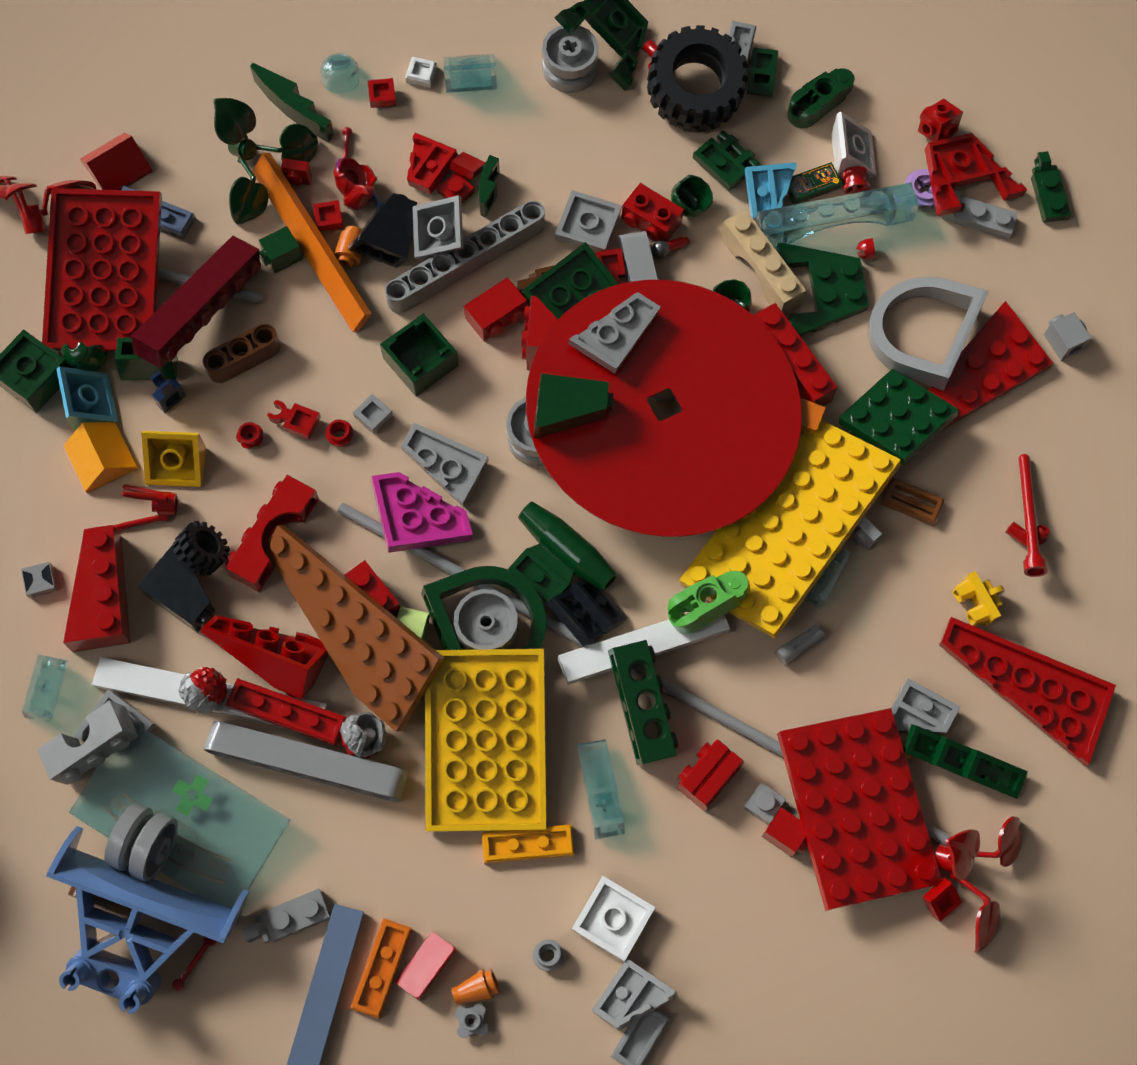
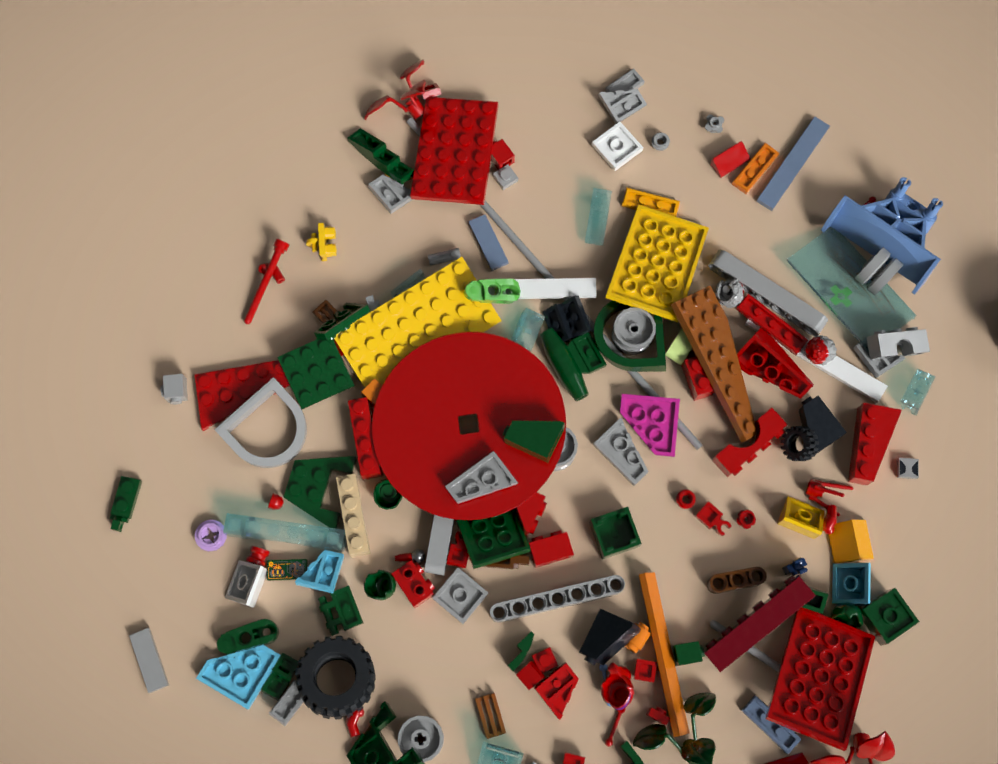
camera: 160 degrees left, 5 degrees up
(134, 466) = (830, 519): none -> red arm
(288, 918) = (801, 211): light grey hinge -> none
(372, 413) = (659, 503): light grey plate -> none
(438, 227) = (572, 620): light grey slope -> none
(476, 988) = (704, 138): orange cone -> none
(487, 98) = (495, 733): none -> dark orange tile
(636, 718) = (560, 225): dark green brick -> none
(638, 577) = (528, 328): none -> clear light blue hinge
(710, 774) = (531, 200): red brick -> none
(746, 690) = (488, 242): none -> sand blue tile
(808, 54) = (240, 673): none -> medium azure plate
(895, 484) = (342, 321): none -> dark green wing
(921, 41) = (149, 660): none -> light grey tile
(940, 120) = (174, 580): red brick -> none
(963, 162) = (177, 542): red wing -> none
(983, 217) = (183, 501): light grey plate -> none
(1049, 693) = (311, 176): red wing -> none

